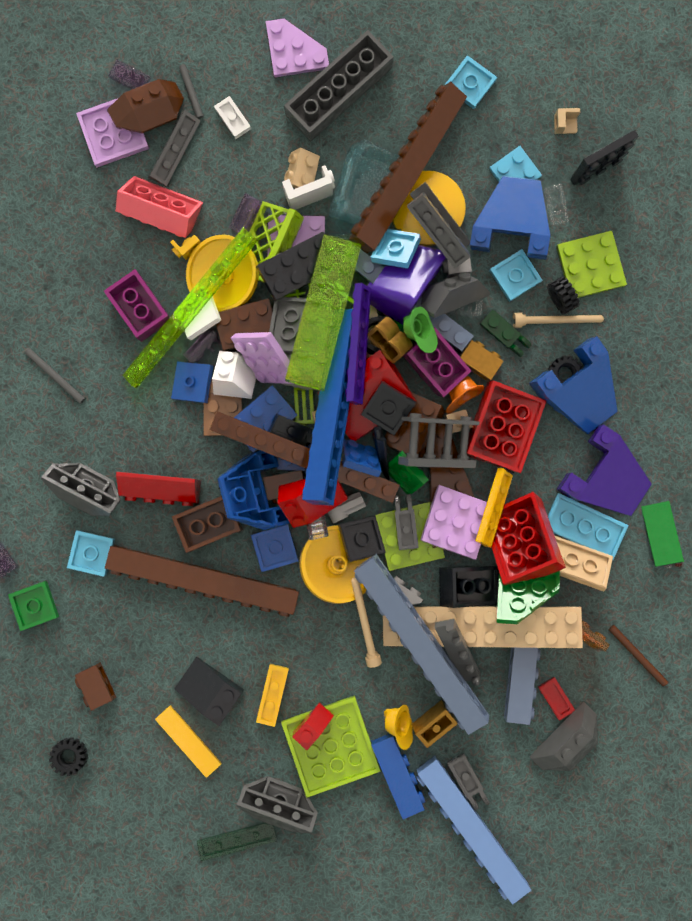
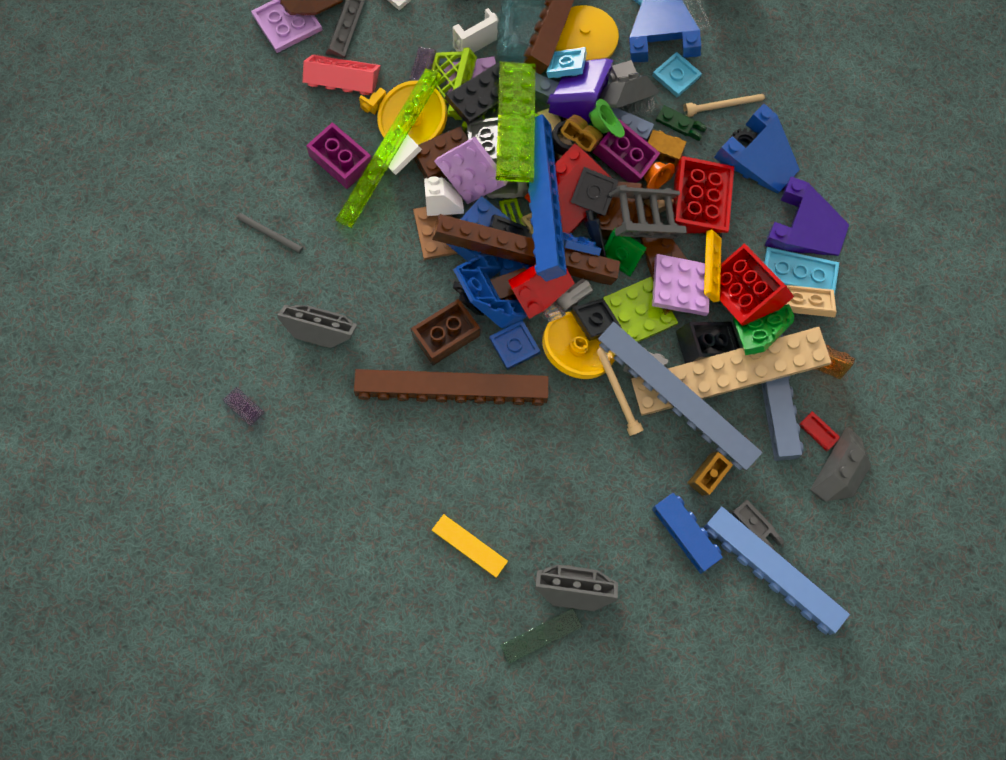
camera: 20 degrees left, 15 degrees down
(33, 605) = (287, 444): green plate -> none
(60, 764) = (341, 576): black tyre -> none
(90, 553) = (335, 384): medium azure plate -> none
(95, 686) = (365, 509): reddish brown brick -> none
(158, 487) = (391, 307): red slope -> none
(192, 382) = (403, 213): blue plate -> none
(196, 351) = (407, 177): plate -> none
(208, 691) = (480, 490): black slope -> none
(272, 695) = (544, 482): yellow plate -> none
(302, 167) = (464, 16): tan bracket -> none
(312, 726) = (591, 499): red slope -> none
(340, 752) = (613, 520): lime plate -> none
(358, 345) = (553, 136): dark purple plate -> none
(399, 725) = (674, 482): yellow piece -> none
(405, 525) = (634, 296): dark grey hinge -> none
(439, 225) = (601, 36): dark grey fence -> none
(458, 650) = (713, 393): dark grey hinge -> none
(563, 295) = (724, 80): black tyre -> none
(592, 264) = (740, 56): lime plate -> none
(638, 655) = (885, 377): reddish brown bar -> none
(662, 535) = (873, 266): green piece -> none

